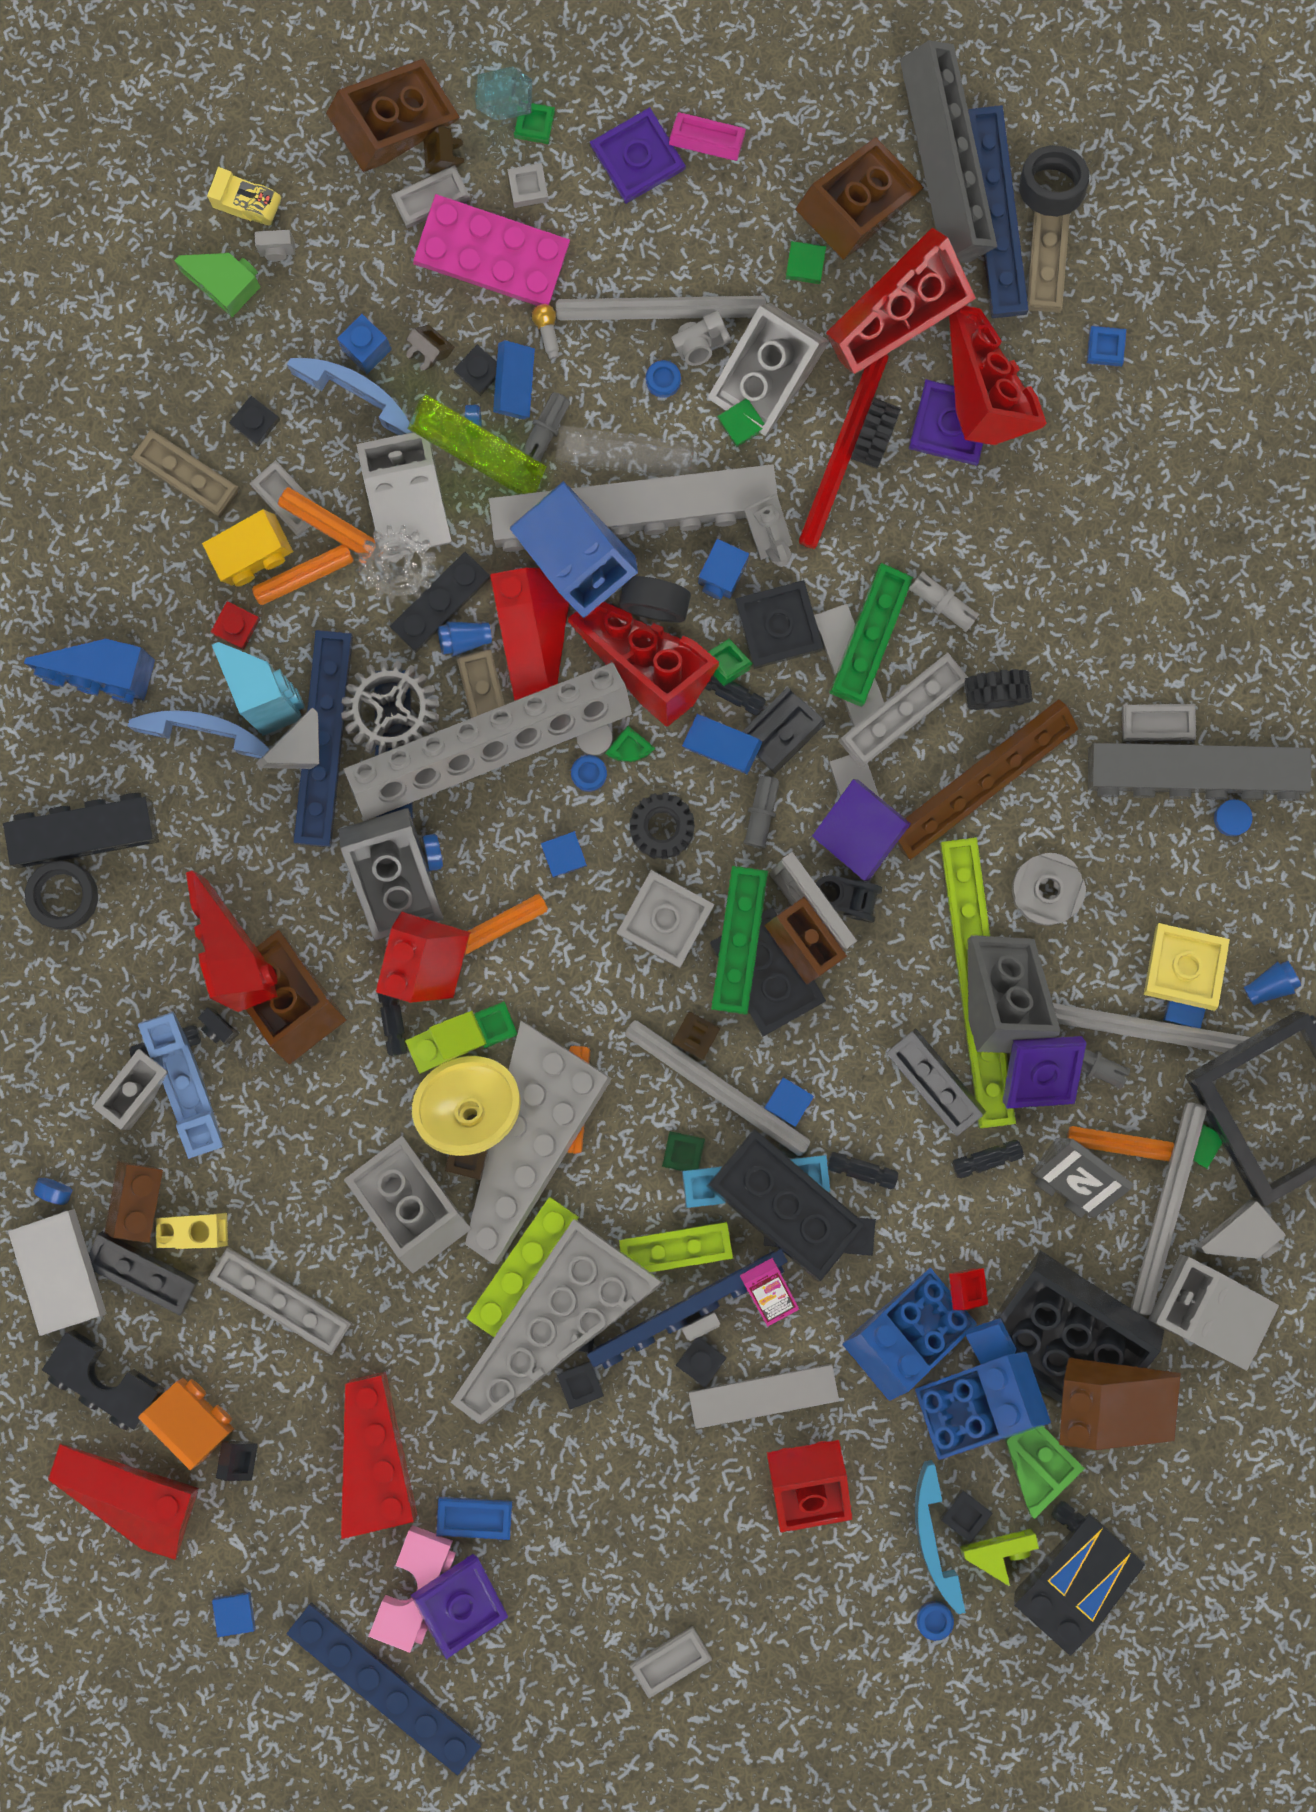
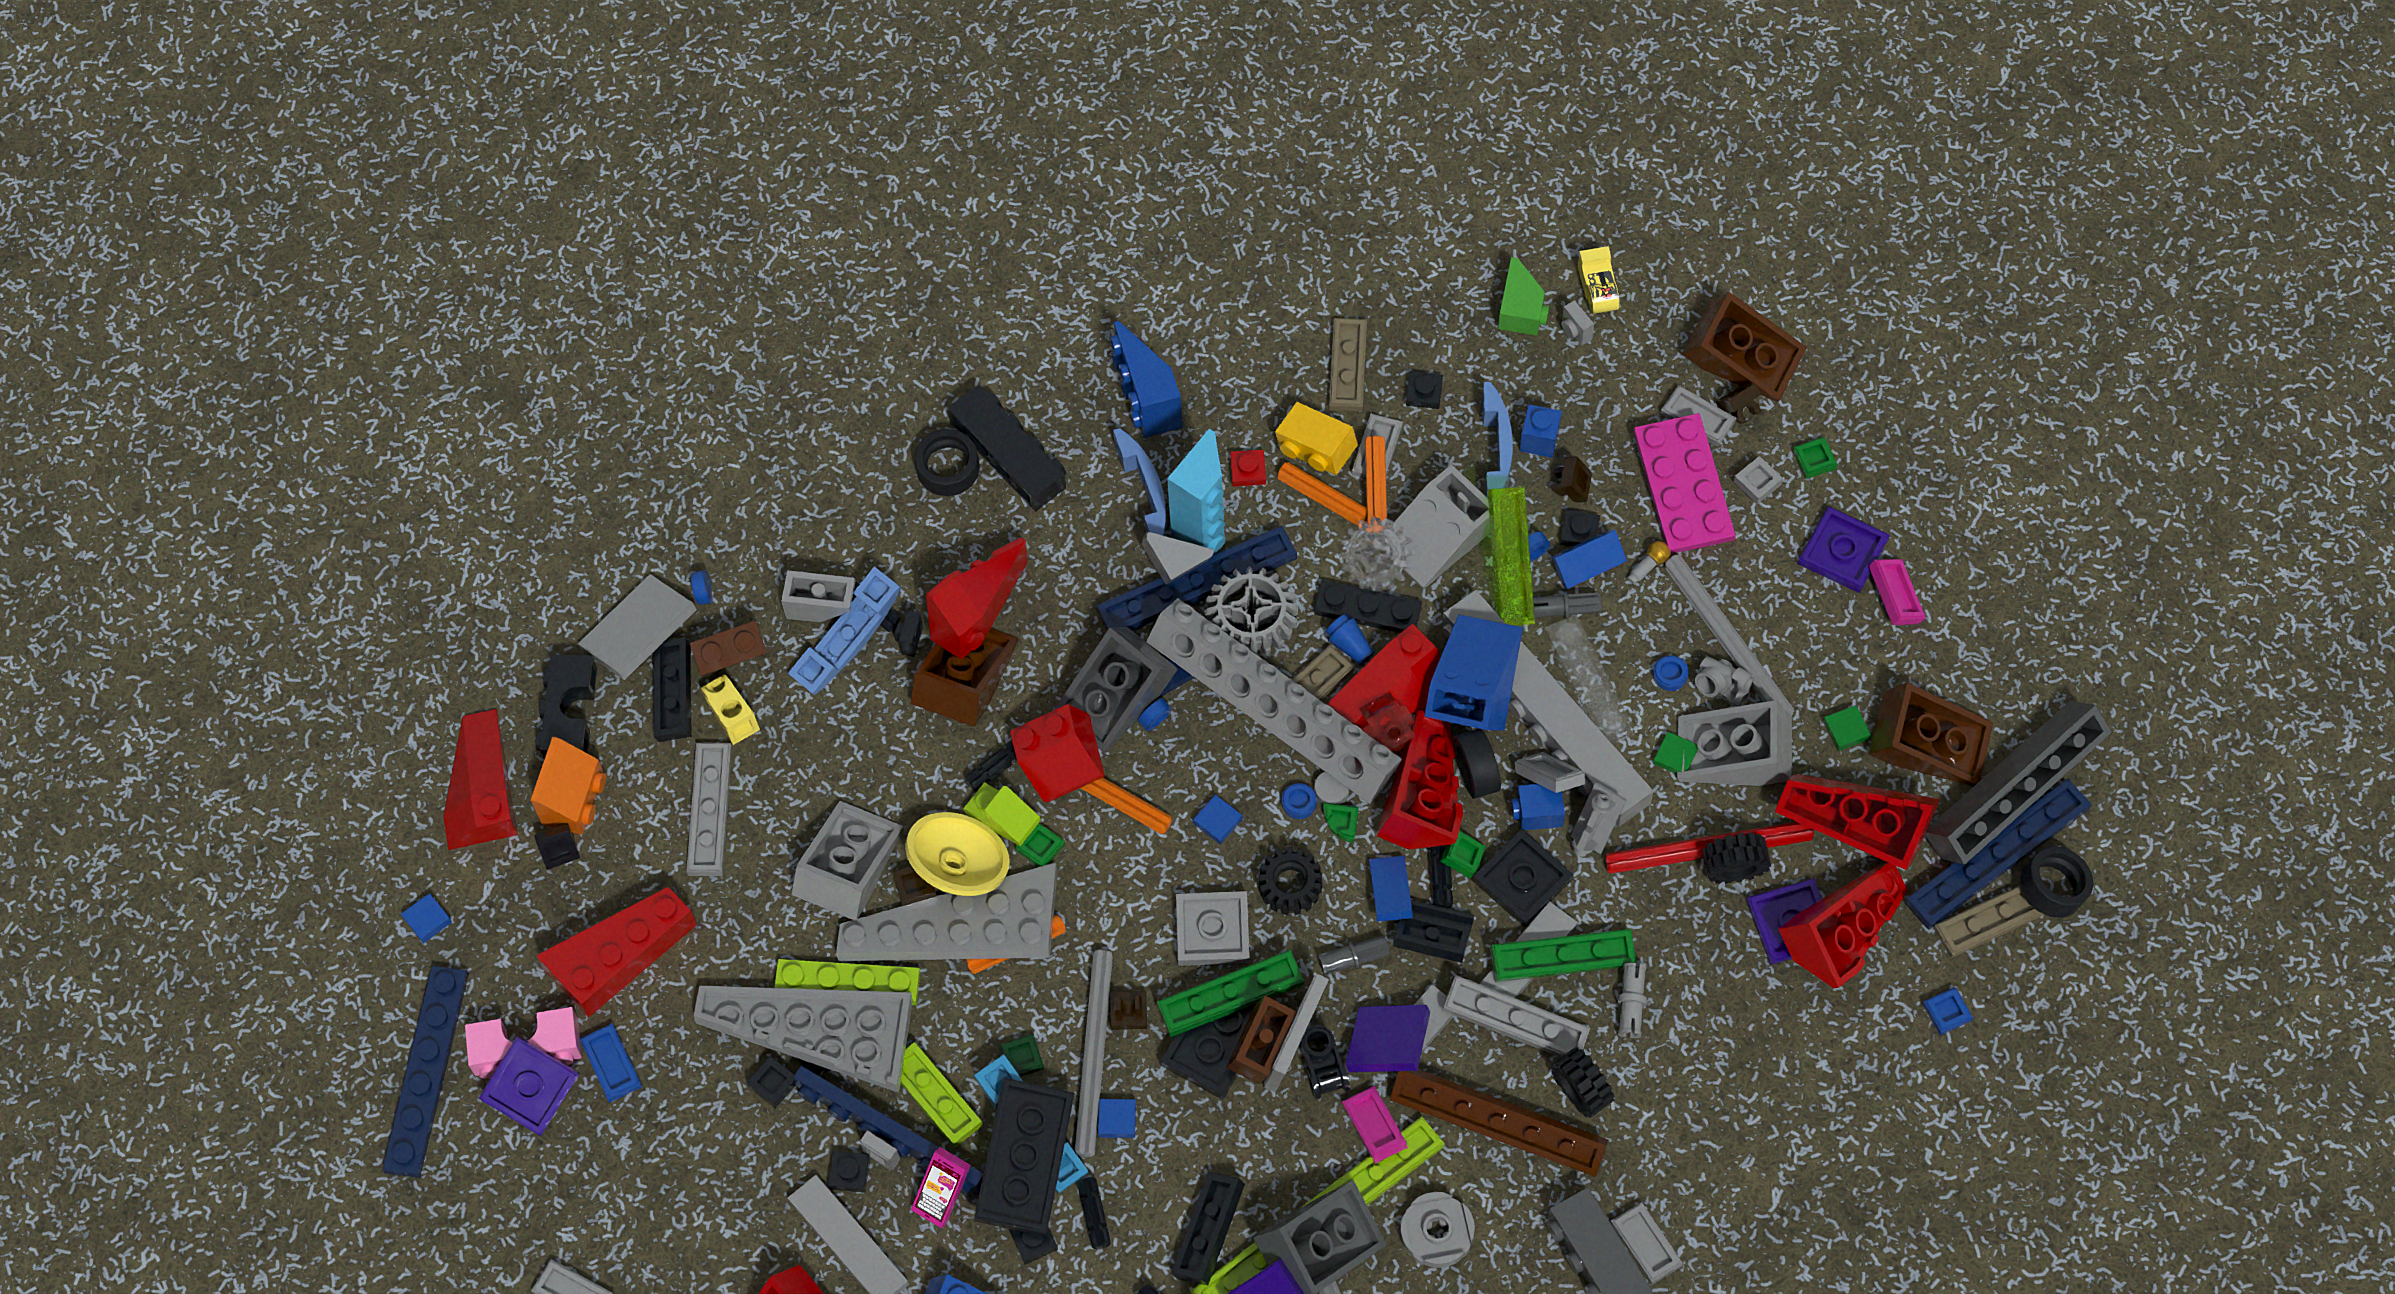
camera: 60 degrees right, 20 degrees down
(504, 93) = (1818, 418): clear light blue brick -> none
(569, 653) = (1388, 722): none -> clear red brick
(702, 542) = (1549, 772): none -> light grey tile
(926, 886) = (1374, 1124): none -> dark pink tile

